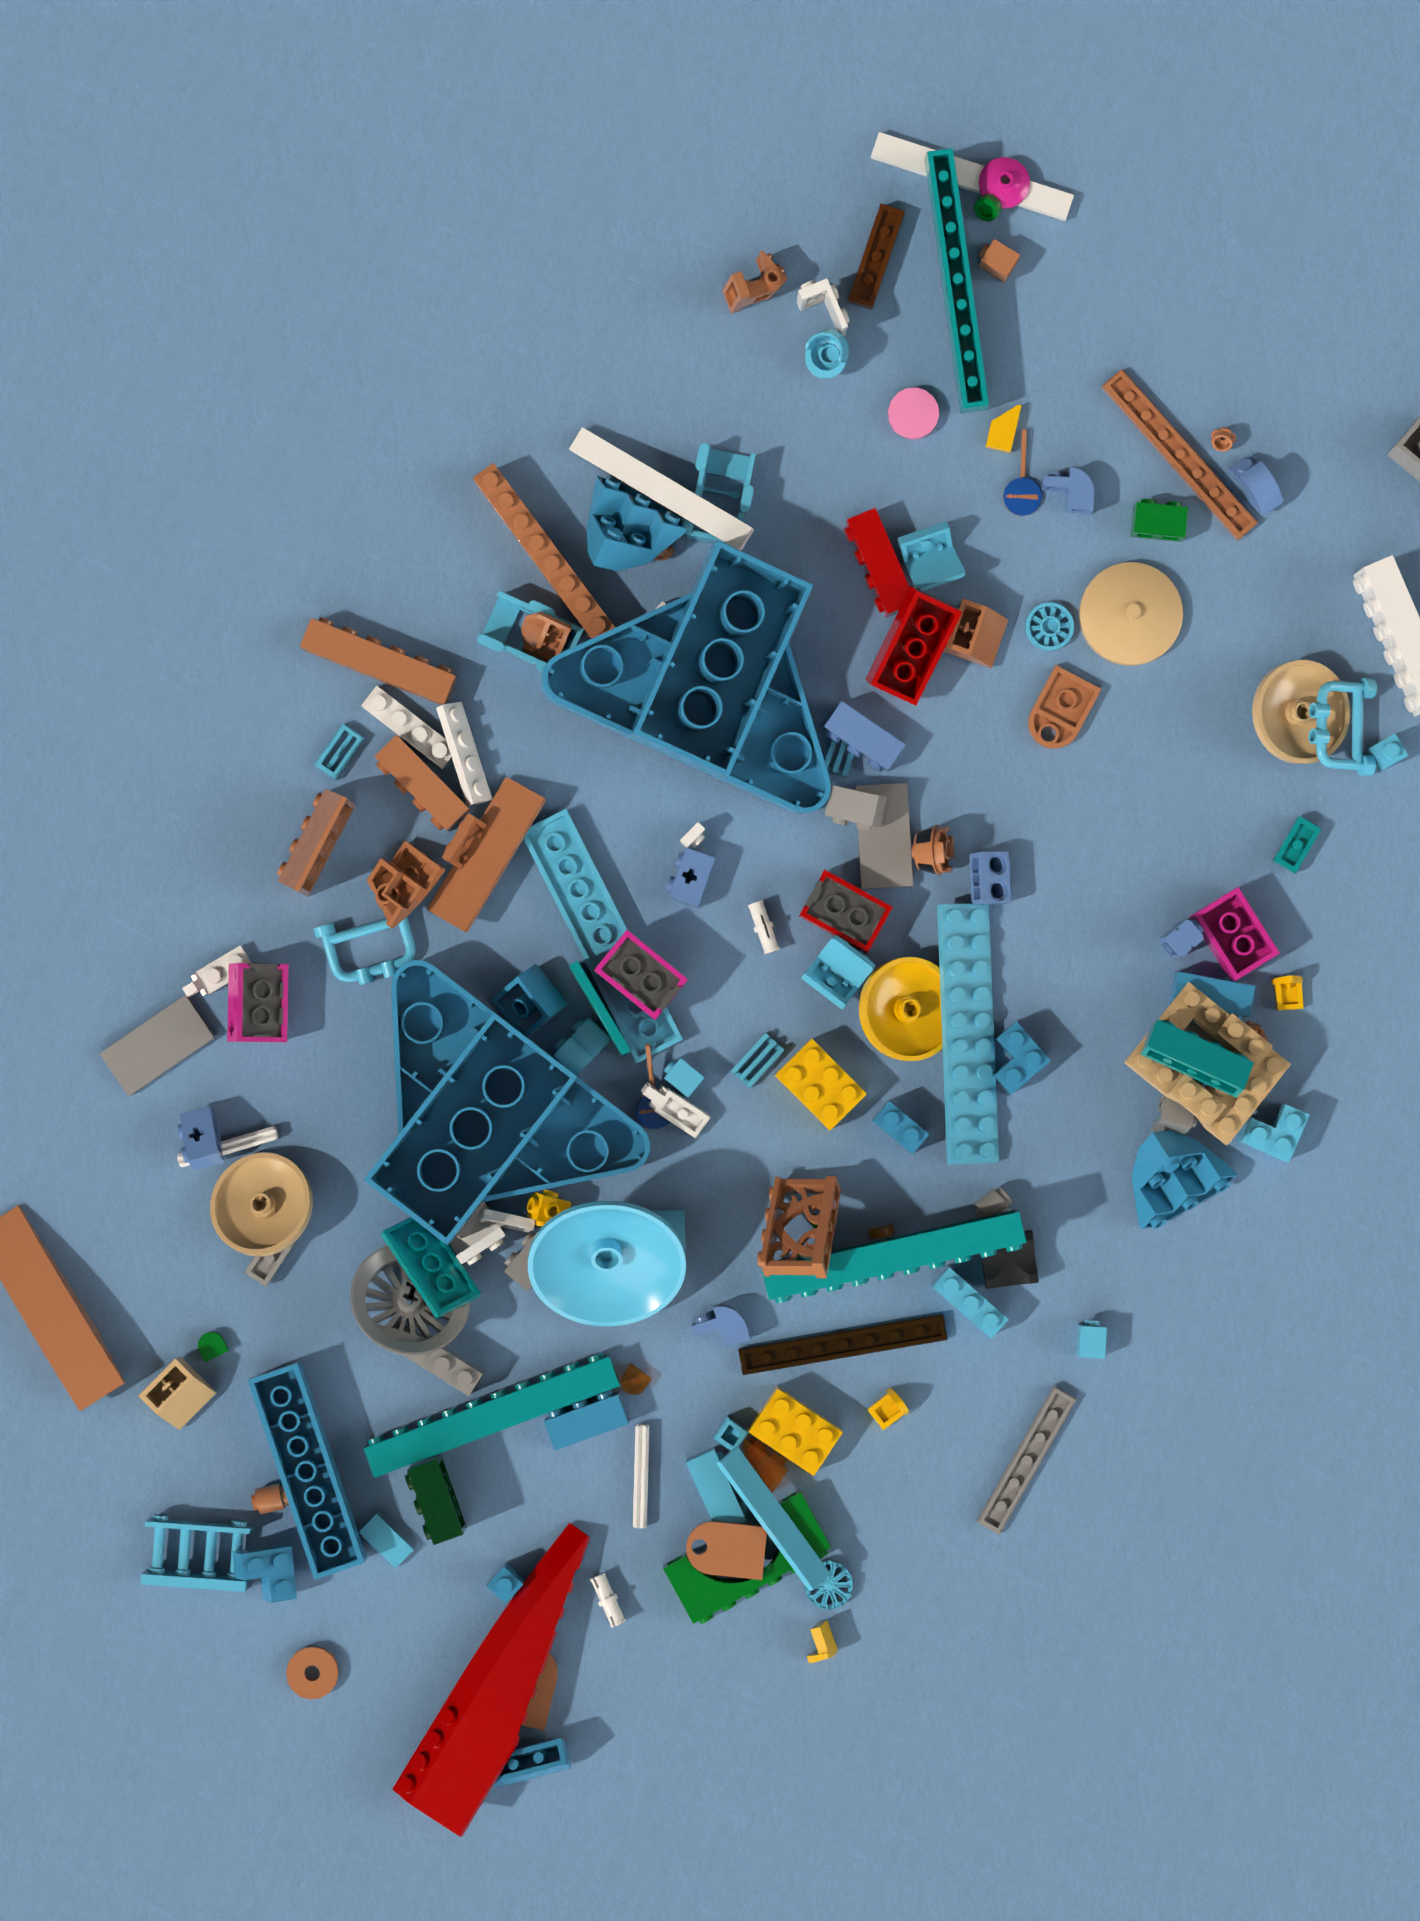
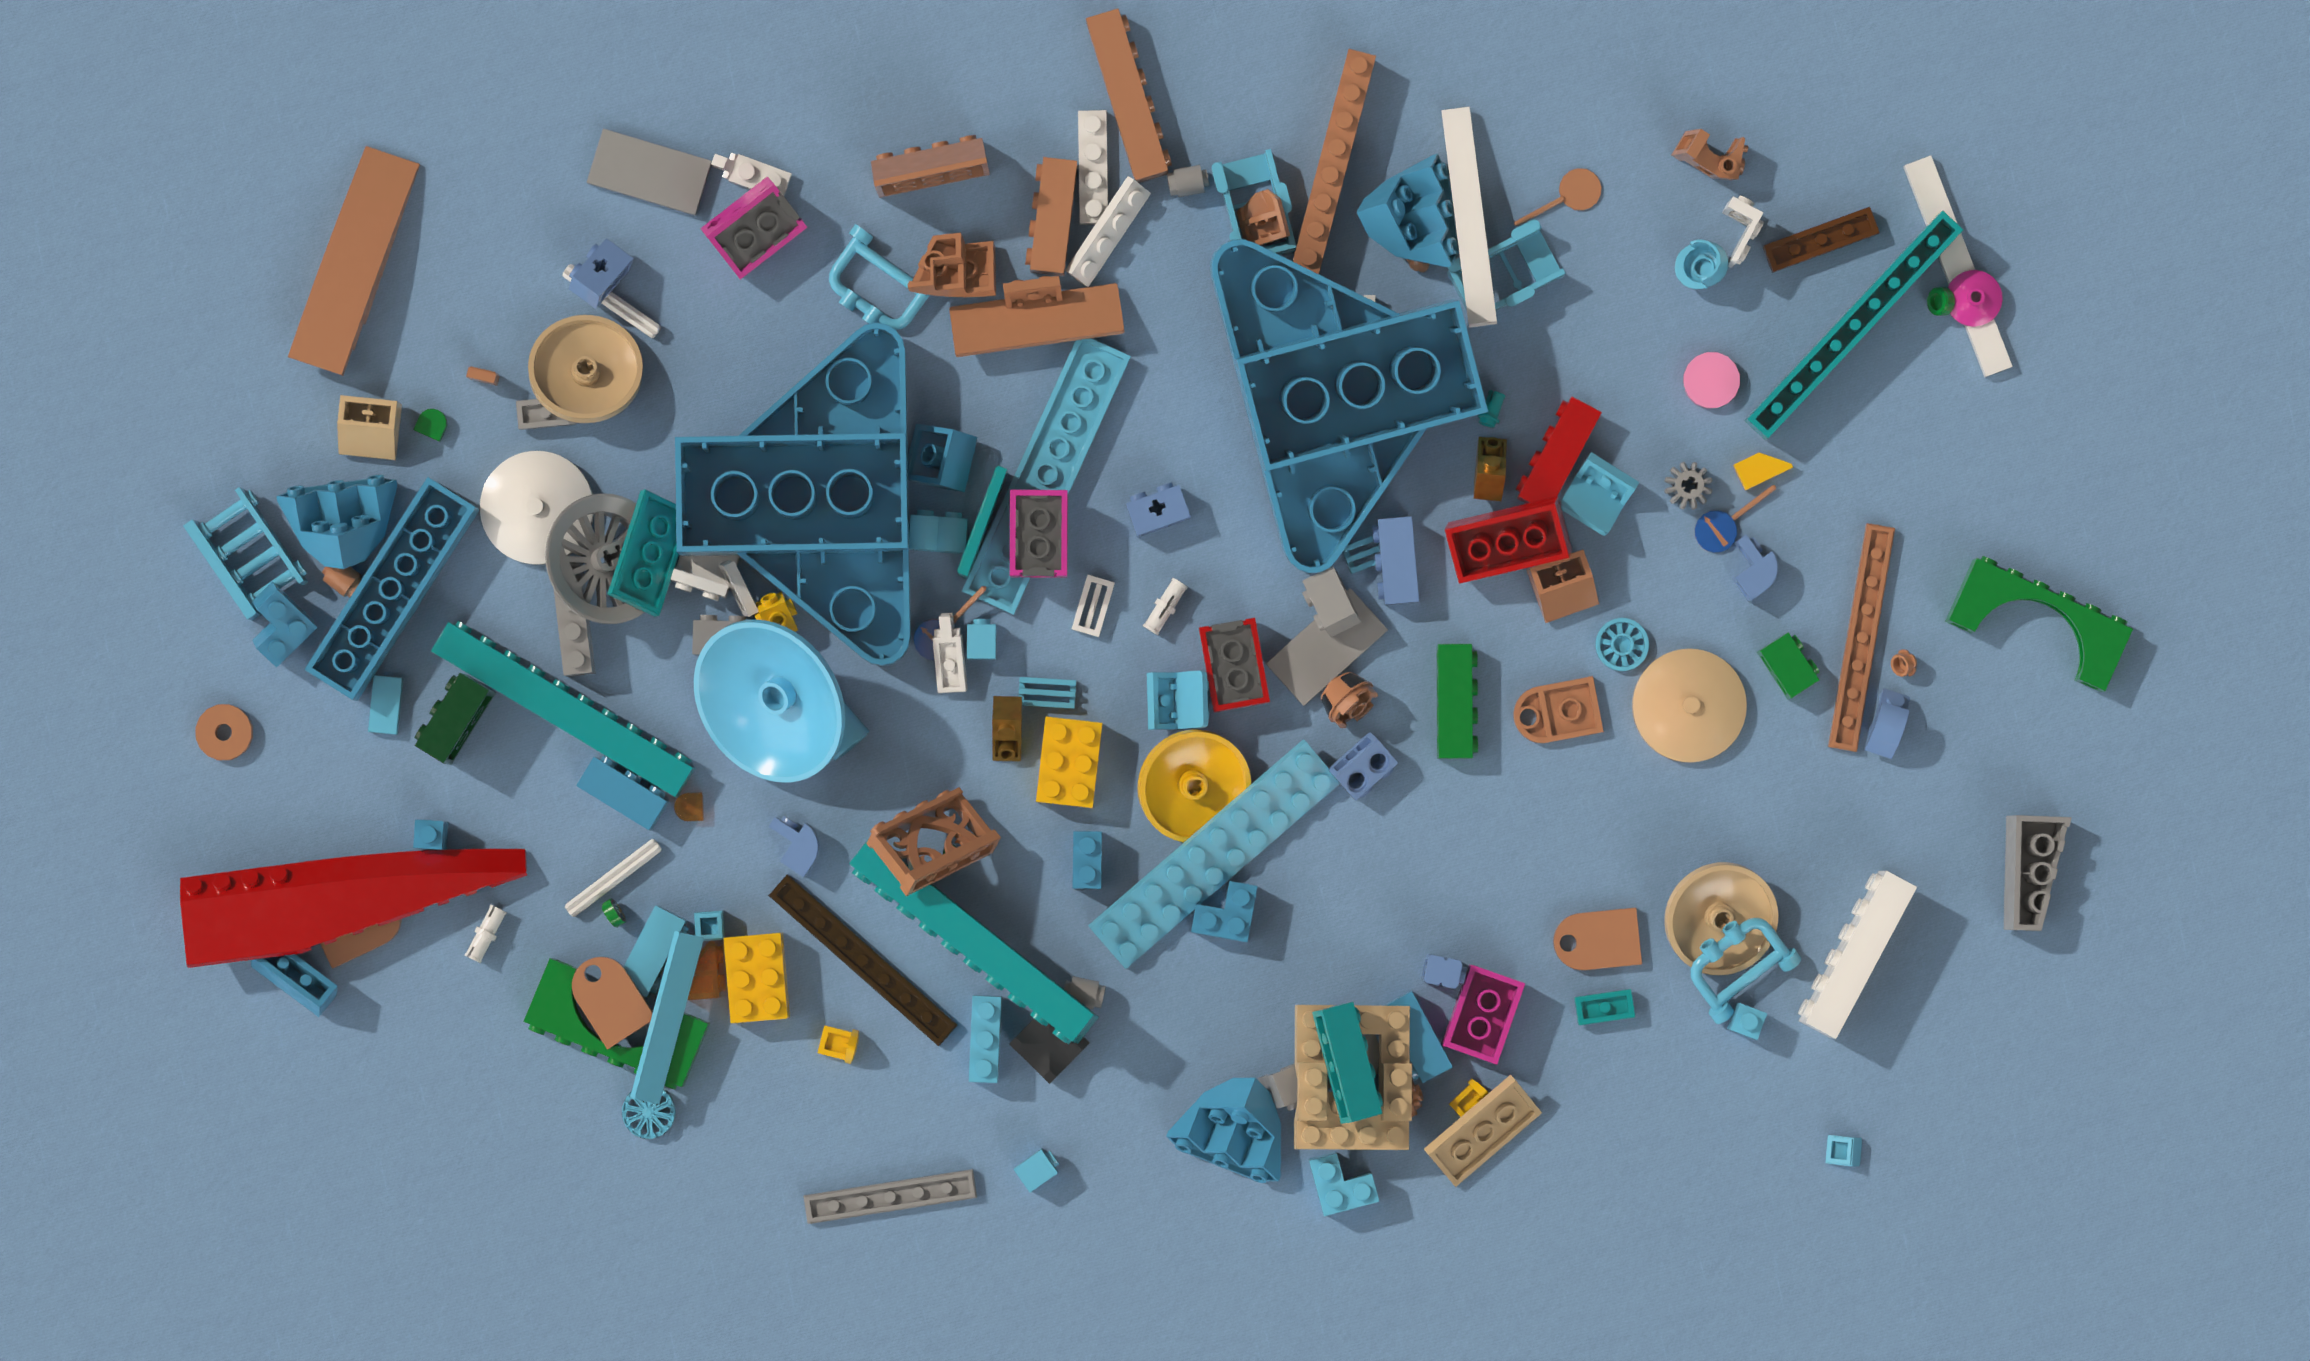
camera: 55 degrees right, 0 degrees up
(207, 1281) = (483, 375): none -> nougat tile
(227, 1467) = (340, 519): none -> dark azure brick
(321, 1323) = (525, 500): none -> white dish
(348, 756) = (1026, 124): medium azure tile -> none
(474, 668) = (1187, 181): none -> light grey brick
(667, 1496) = (613, 913): none -> green tile
(693, 836) = (1194, 484): white plate -> none
(702, 398) = (1577, 189): none -> nougat piece
(734, 996) = (1086, 629): none -> white tile
(760, 1109) = (1007, 728): none -> pearl gold slope
(807, 576) = (1494, 403): none -> teal pin
(824, 1642) = (596, 1146): yellow tile -> none
(851, 618) = (1490, 469): none -> pearl gold slope
(881, 1231) = (985, 915): clear orange tile -> none
(977, 479) = (1683, 476): none -> light grey gear
(996, 776) = (1455, 701): none -> green brick
(998, 260) = (1902, 346): nougat brick -> none
(1246, 808) = (1601, 939): none -> nougat tile
(1313, 289) = (2098, 637): none -> green arch
(1317, 1001) = (1483, 1130): none -> tan plate

